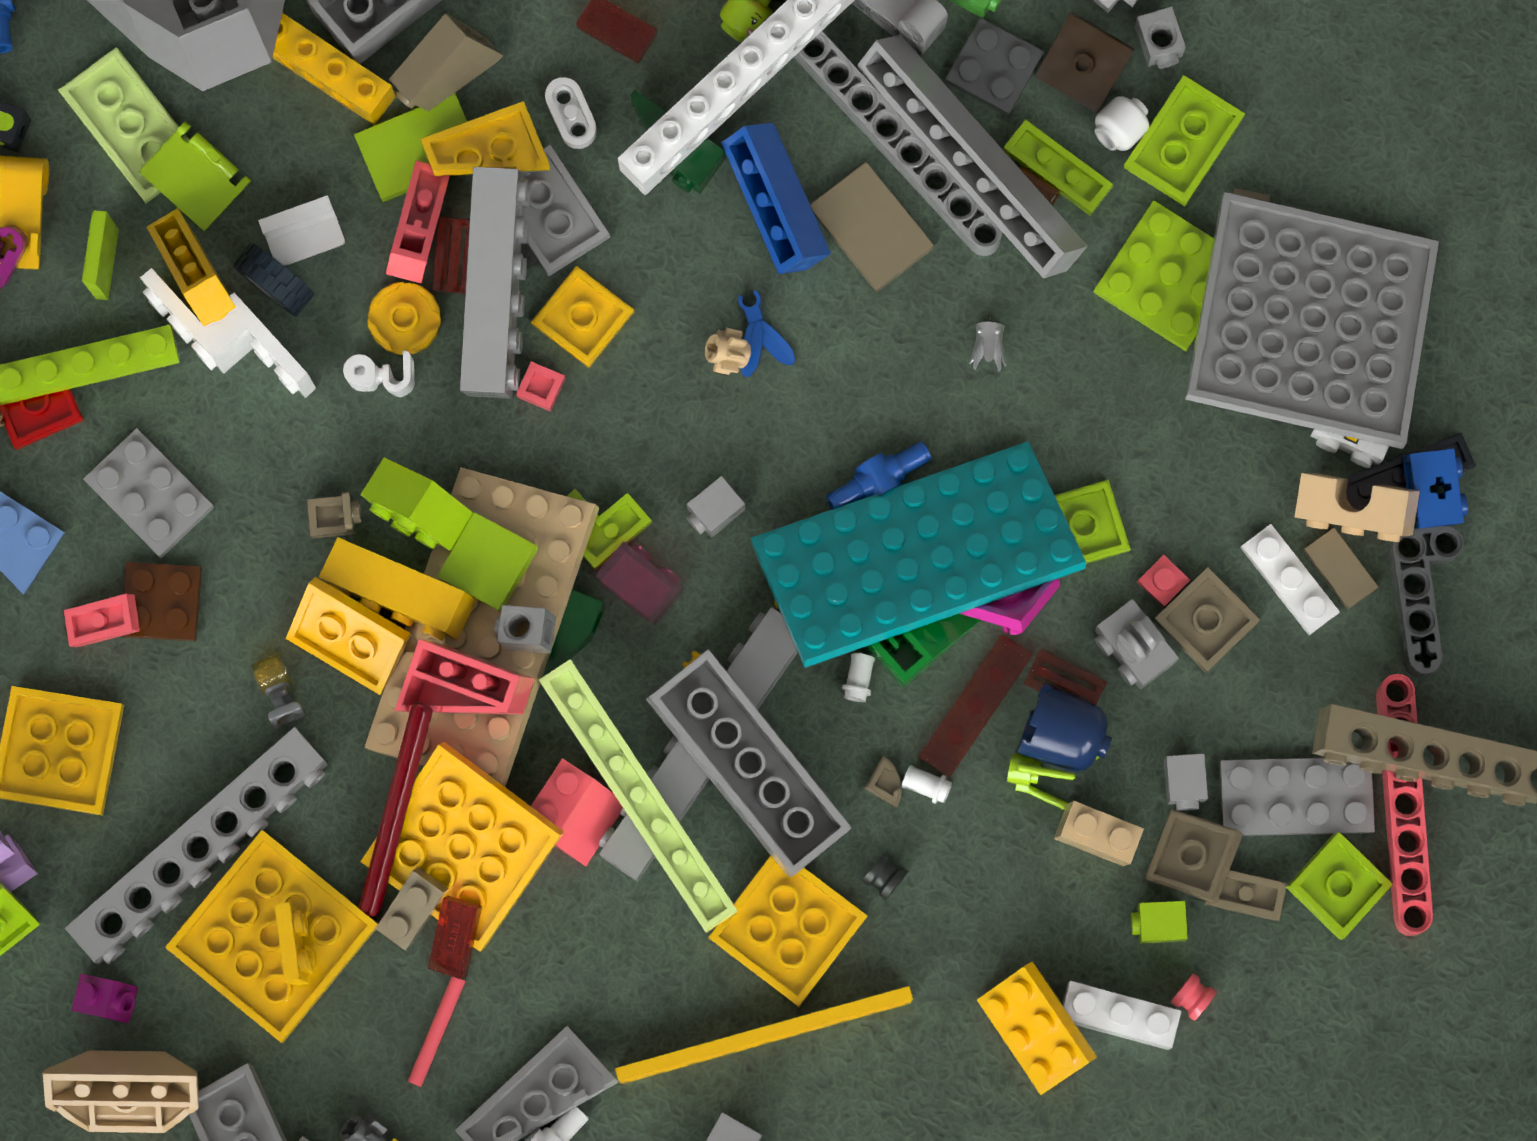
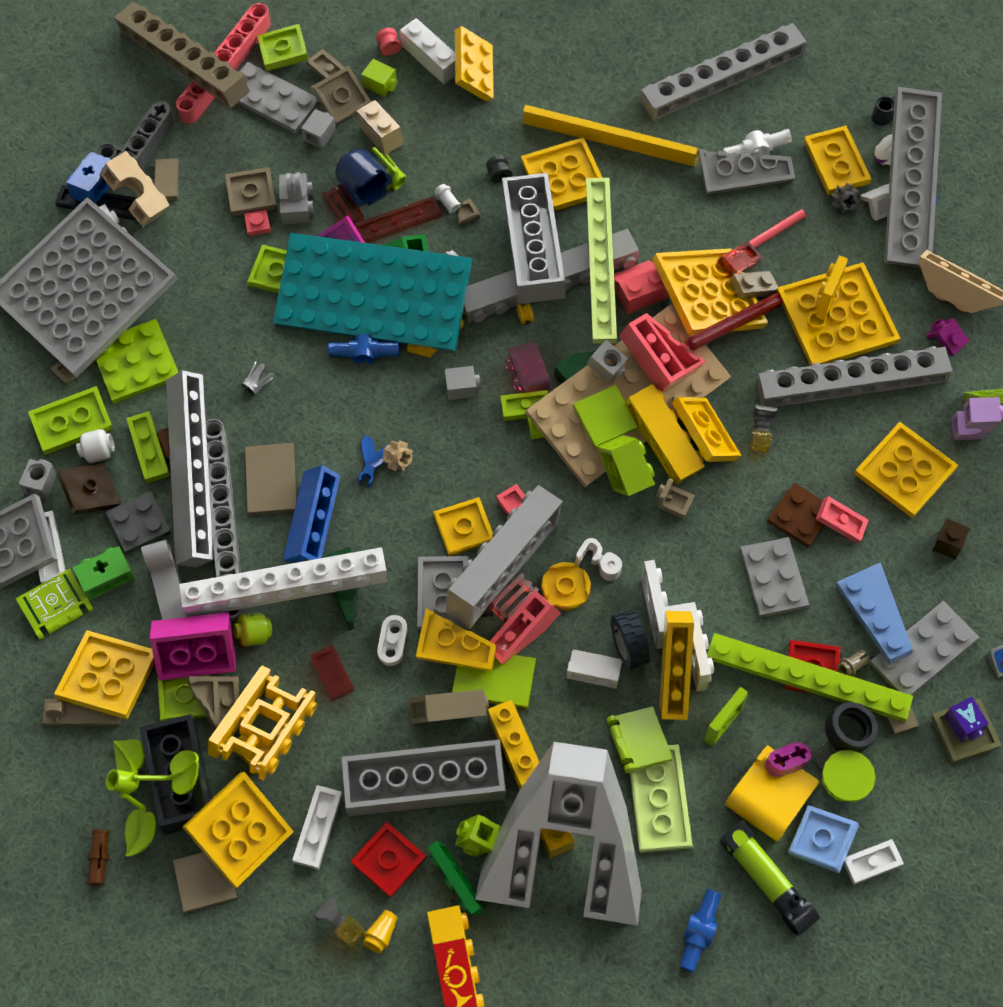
camera: 150 degrees left, 15 degrees down
(1290, 579) = (195, 189): white plate -> none

